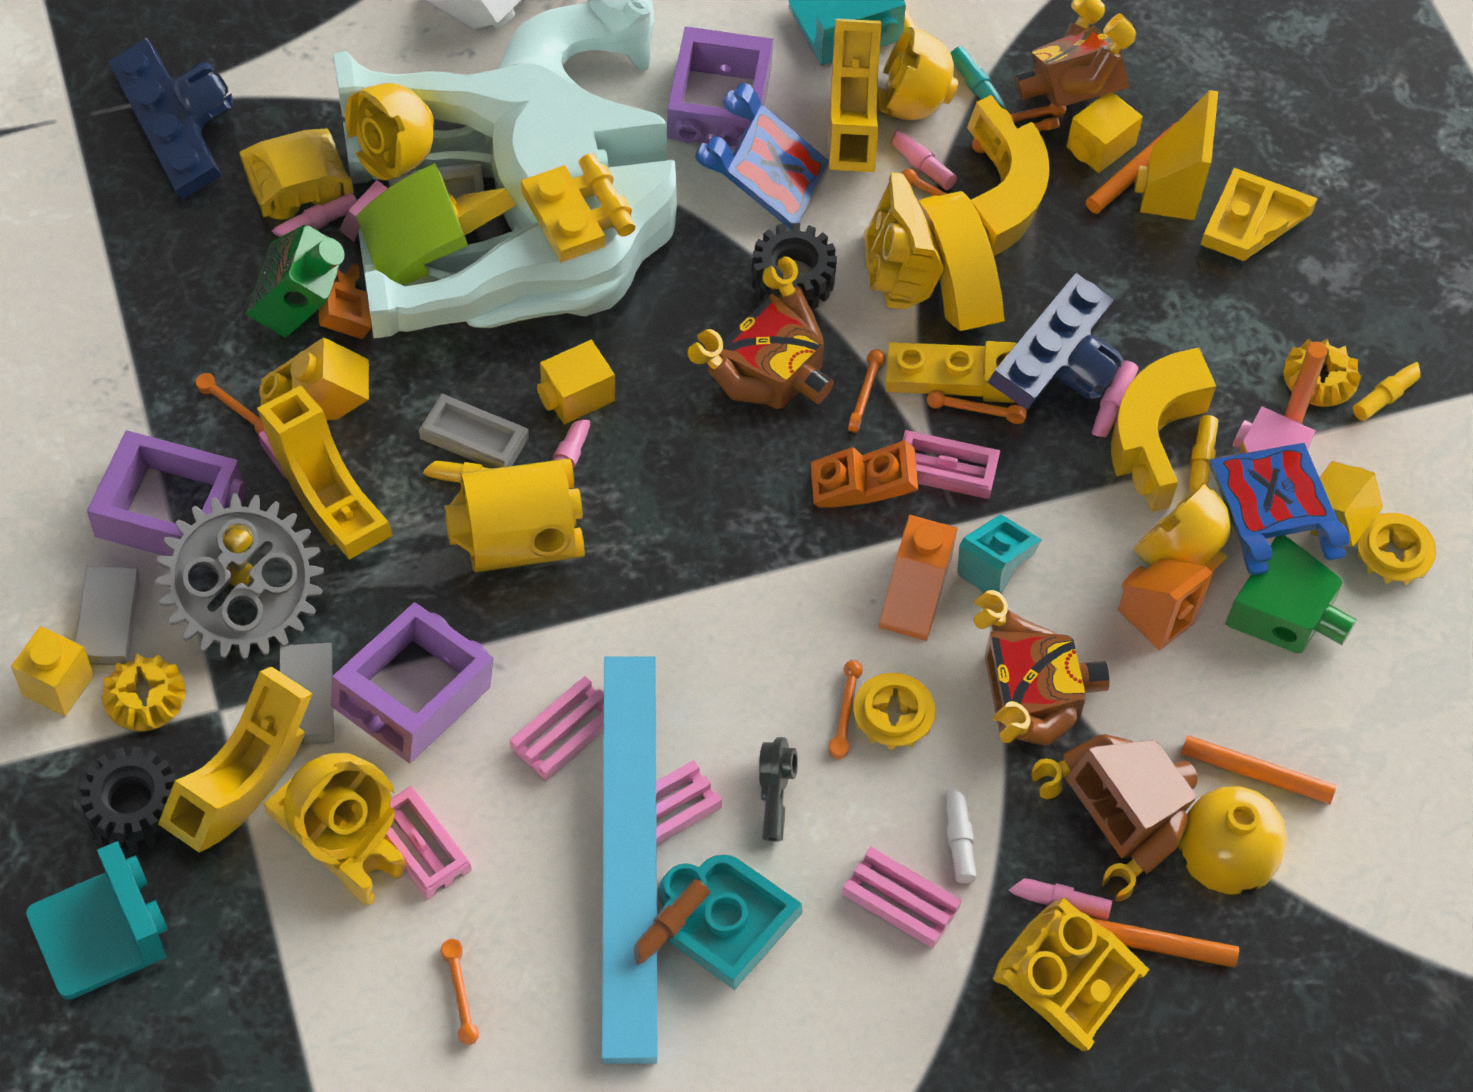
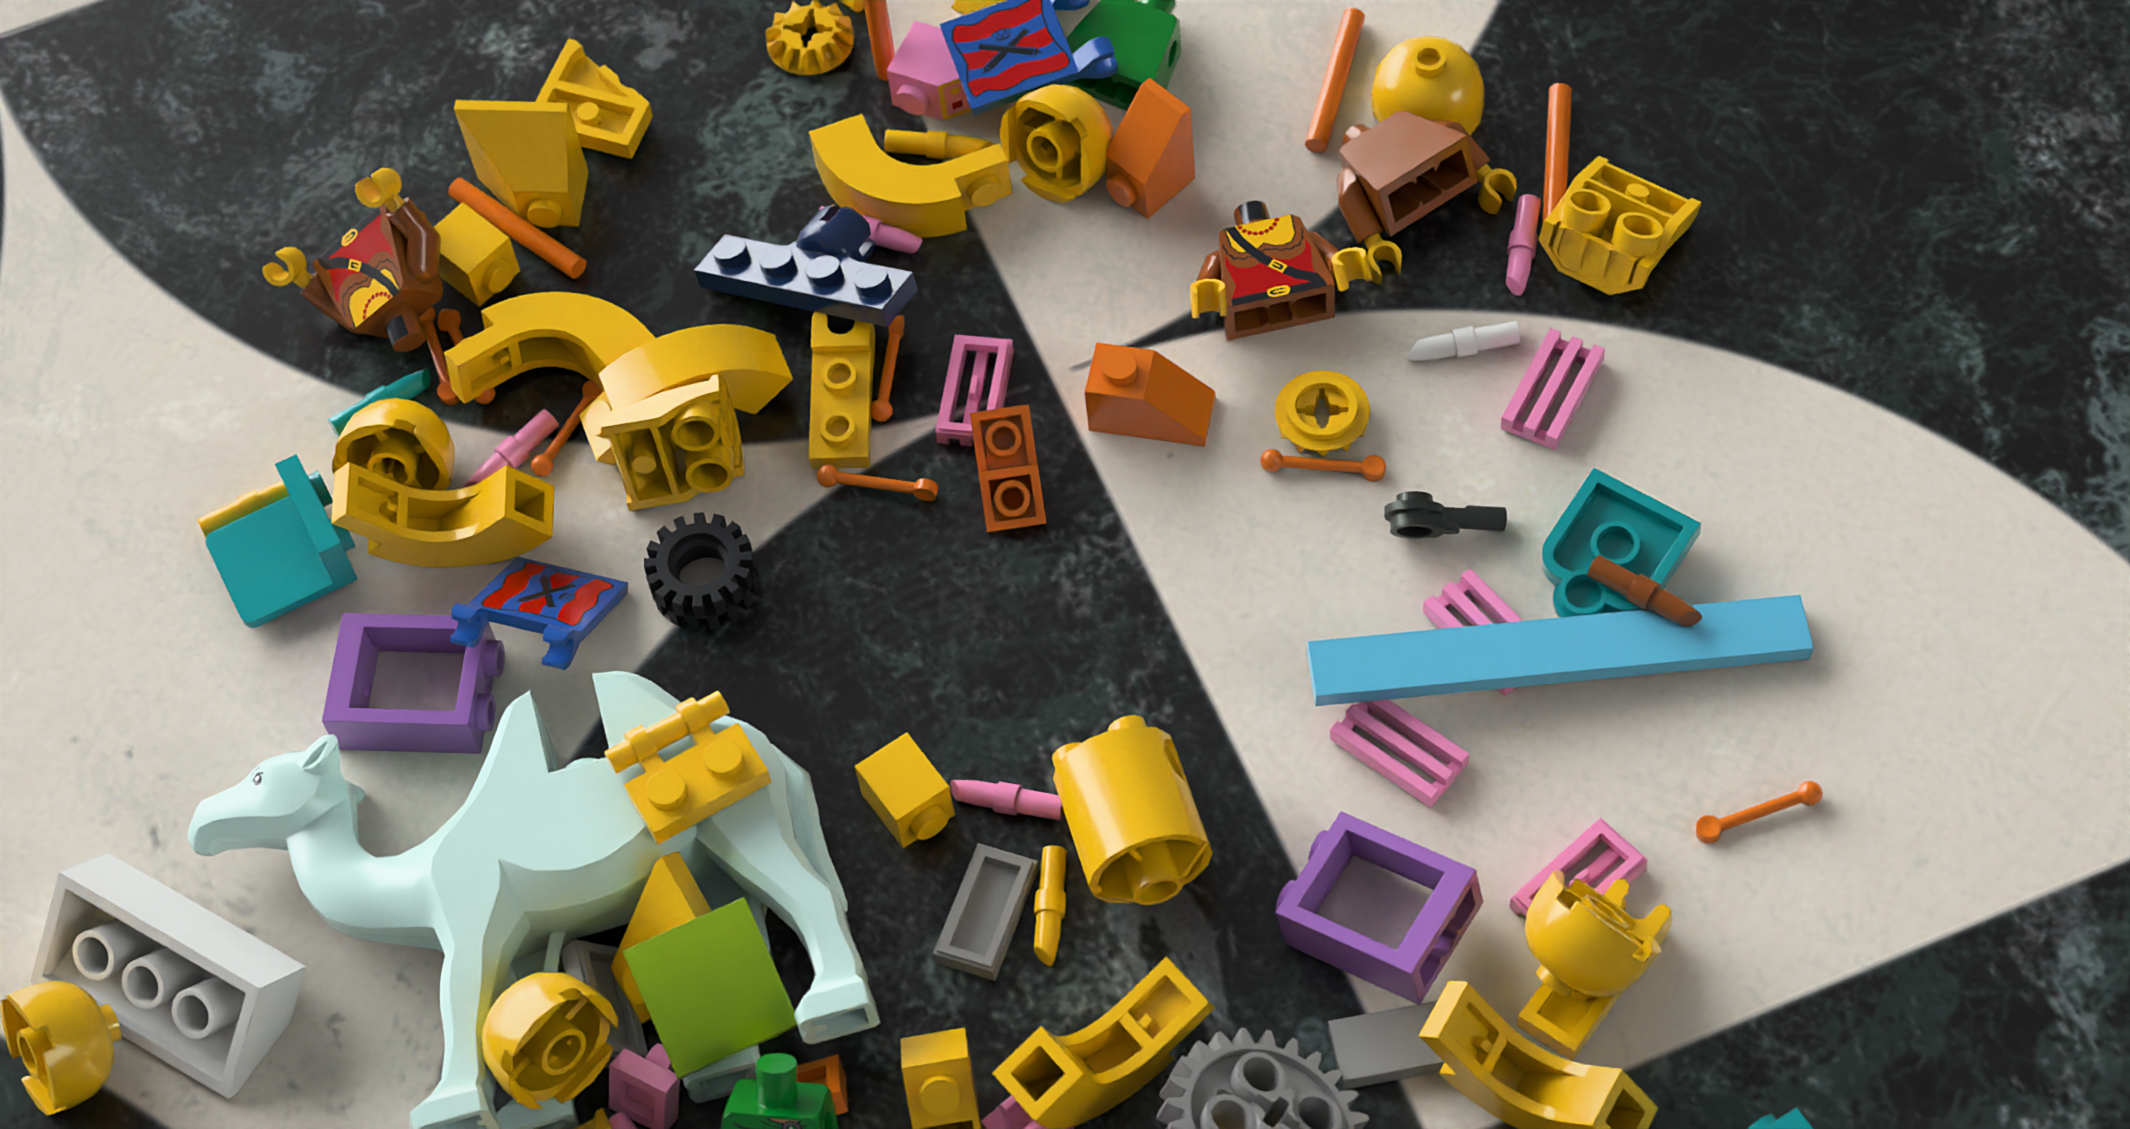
camera: 85 degrees left, 0 degrees up
(771, 351) = (836, 574): torso -> none
(993, 552) = (1105, 314): teal slope -> none

